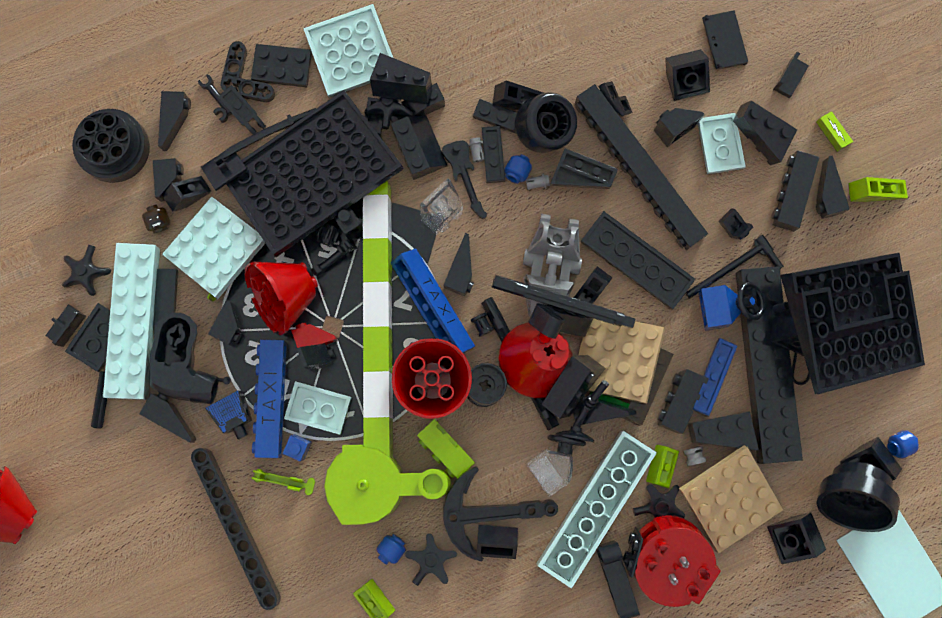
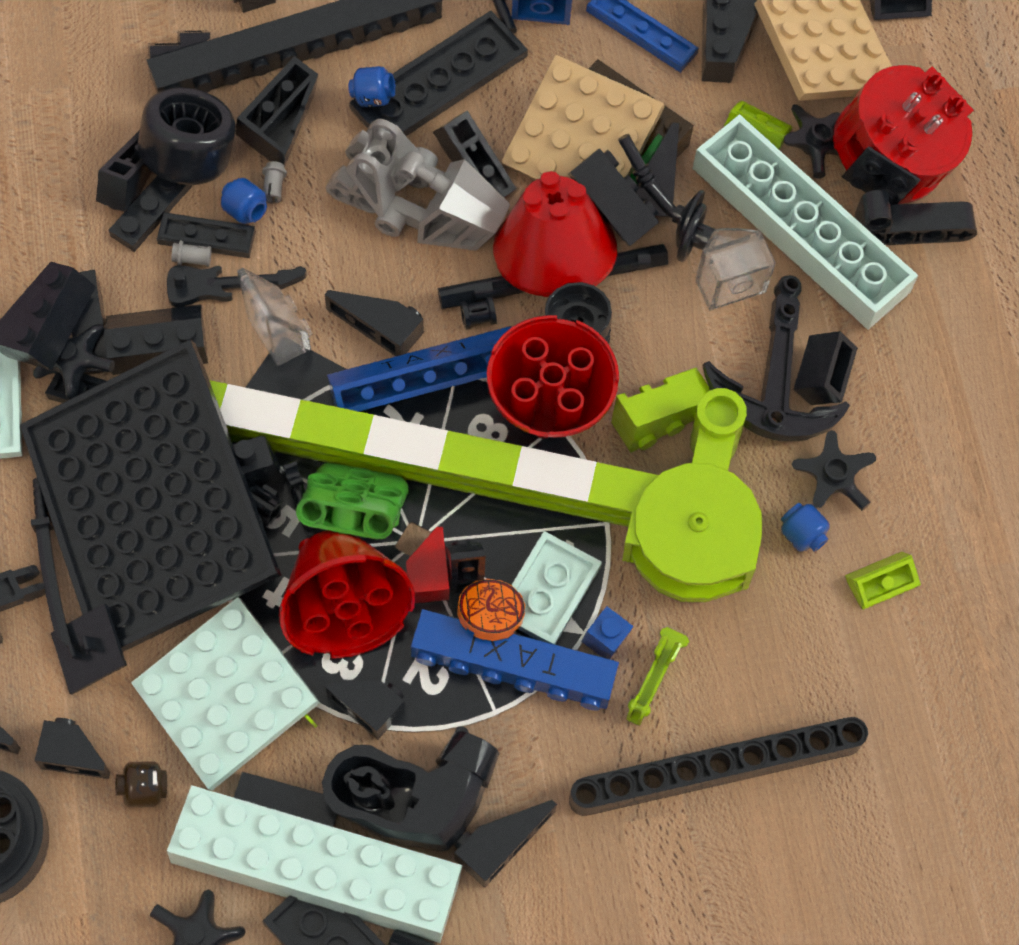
camera: 80 degrees left, 15 degrees down
(185, 193) = (111, 724): black slope -> none
(231, 414) = (524, 730): torso -> none
(291, 378) = (491, 609): none -> orange tile
(334, 284) = (352, 501): none -> bright green connector
(552, 320) = (508, 185): black beam -> none
(562, 301) = (479, 173): black piece -> none
(613, 221) = (372, 86): none -> blue head
(681, 401) = (666, 71): black wedge -> none
(694, 456) = (753, 78): light grey wheel -> none

